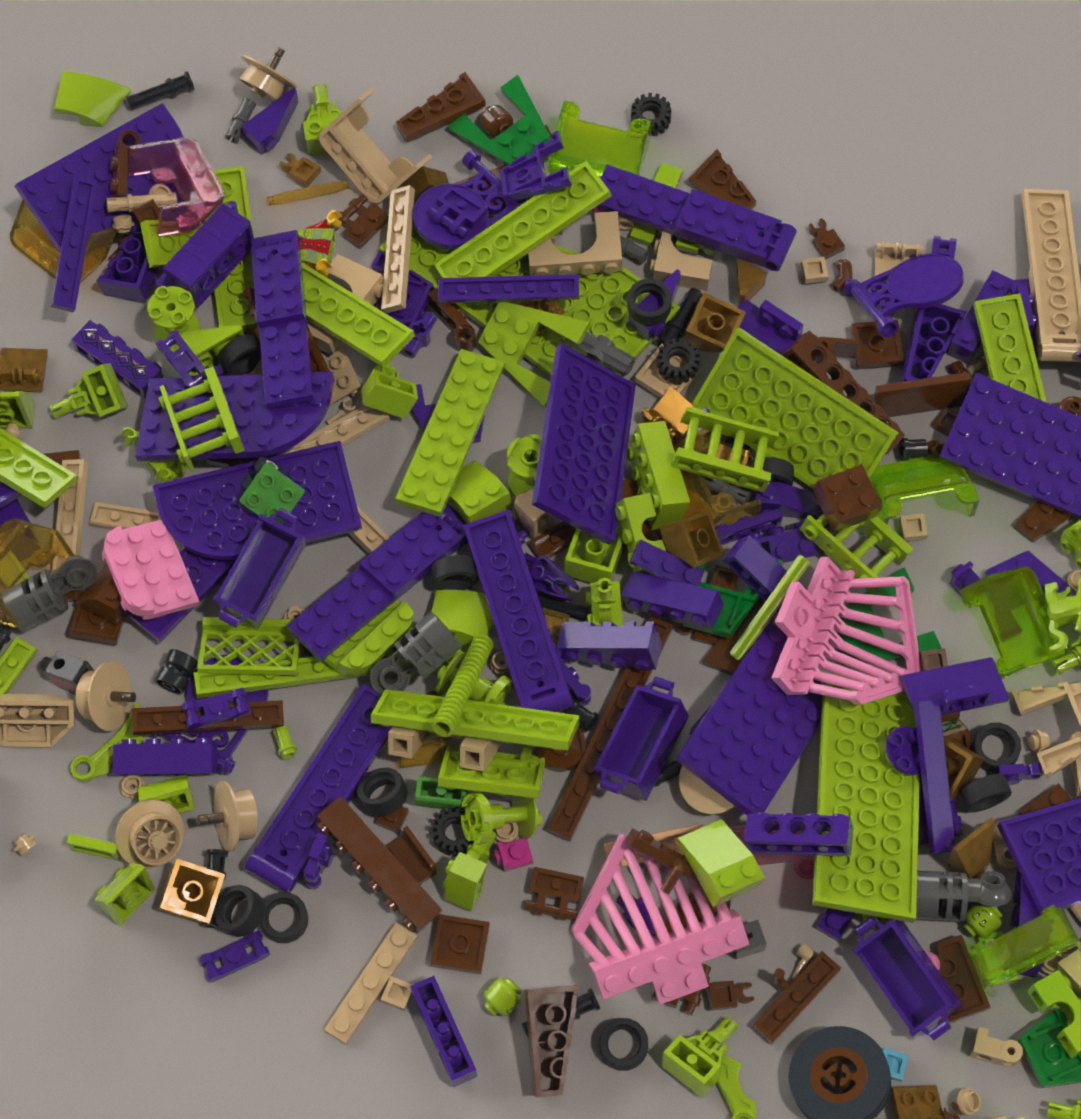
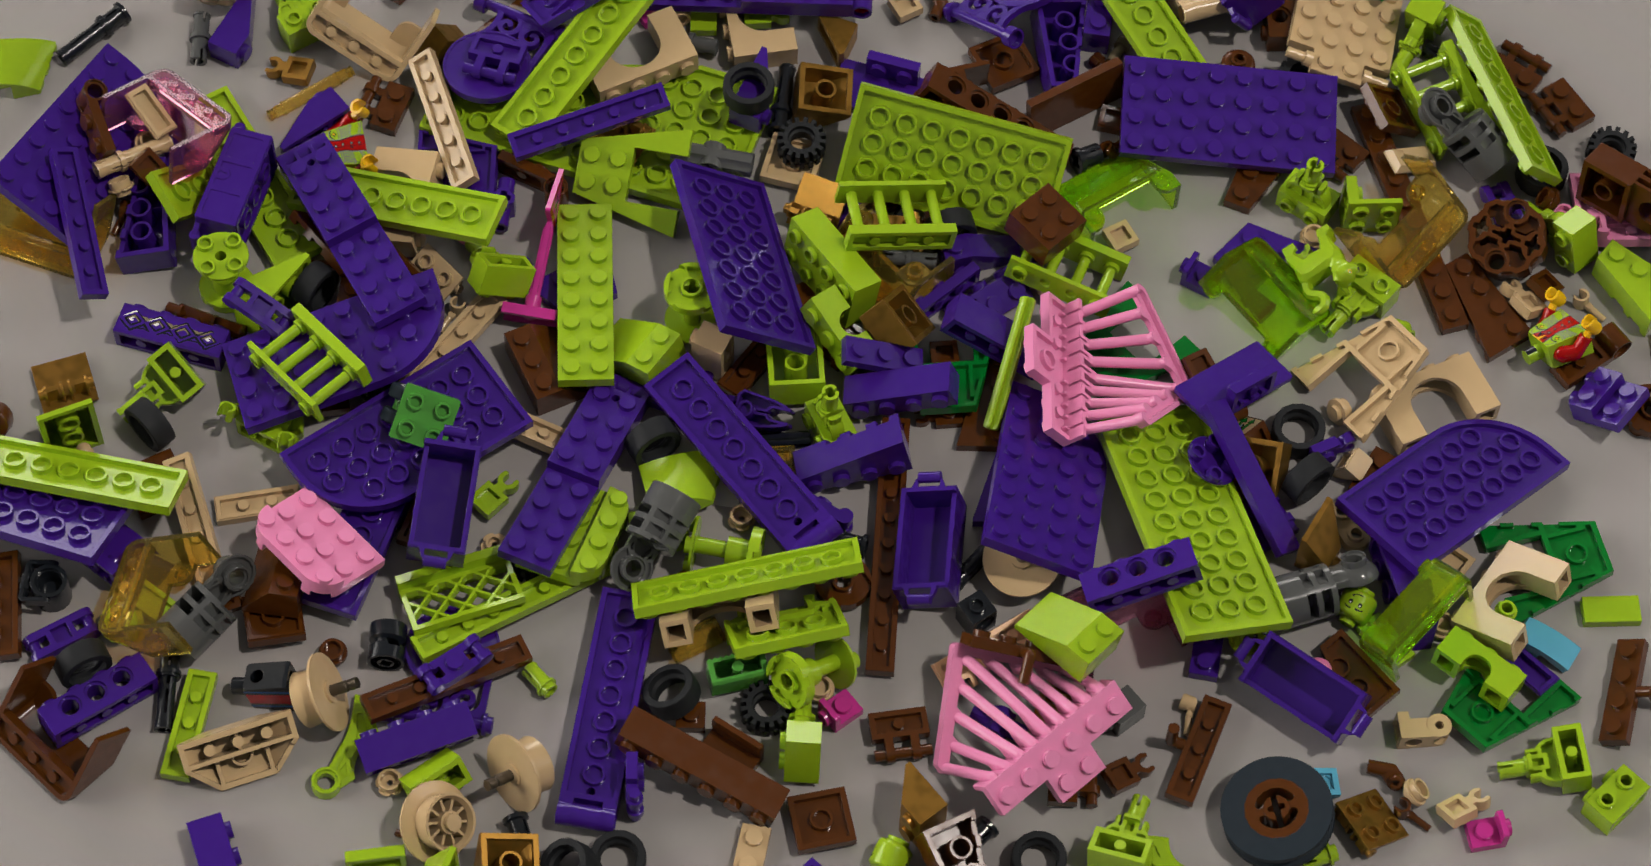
camera: 25 degrees left, 5 degrees down
(67, 425) = (149, 424): none -> black tyre
(133, 662) = (335, 650): none -> reddish brown plate
(149, 353) = (182, 310): none -> reddish brown piece
(167, 170) = (150, 111): none -> tan tile
(300, 215) = (316, 117): none -> dark purple slope
(309, 577) = (492, 498): none -> lime plate
(389, 469) = (535, 359): none -> reddish brown slope
(449, 354) = (531, 310): none -> dark pink piece
(462, 685) = (718, 548): lime piece -> none
(539, 963) = (920, 805): none -> pearl gold slope
(658, 812) = (976, 612): none -> black brick
(952, 1075) = (1389, 772): none -> reddish brown arm
(1031, 794) = (1353, 465): none -> tan slope

